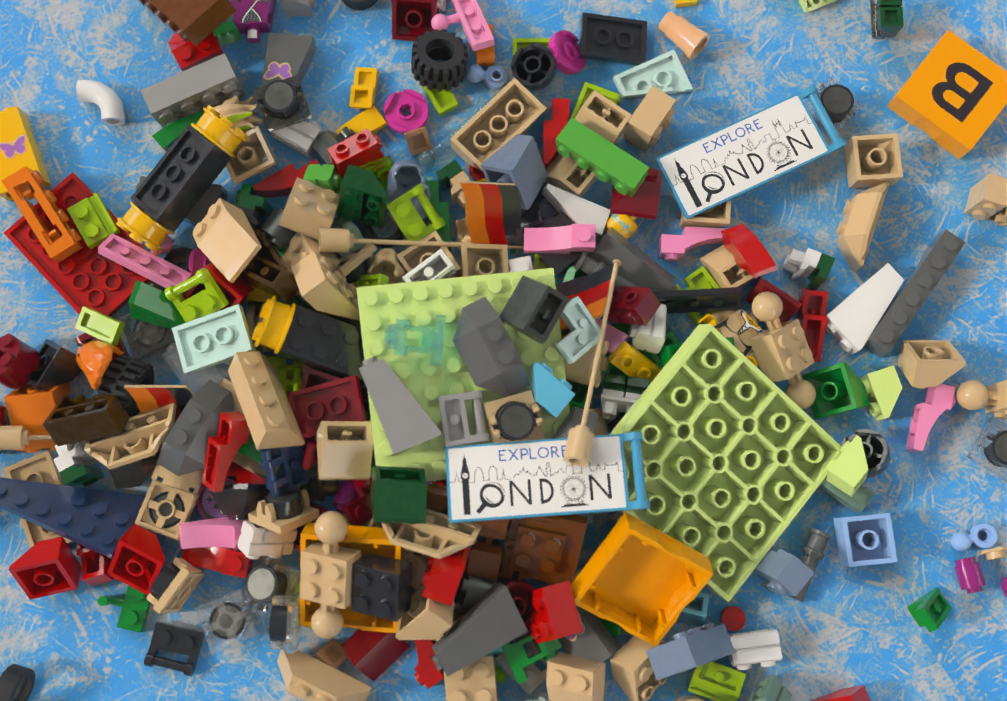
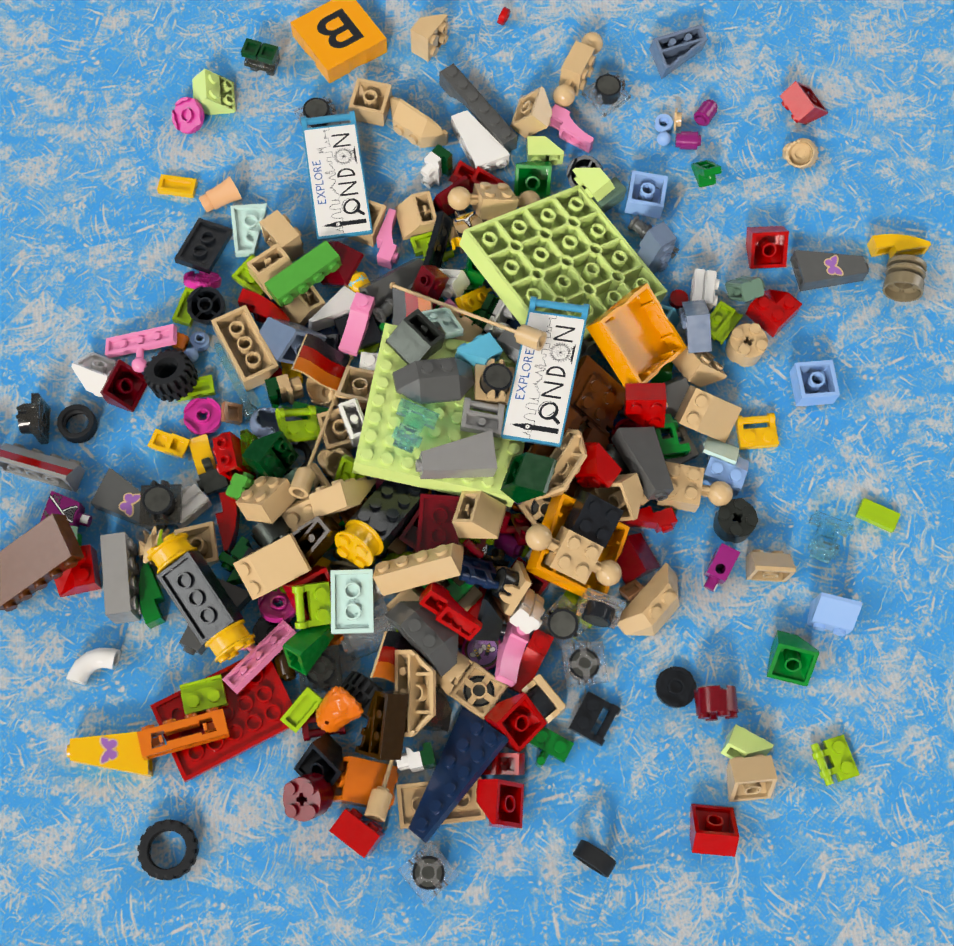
camera: 80 degrees left, 10 degrees down
(748, 251) = (413, 197): red slope -> none

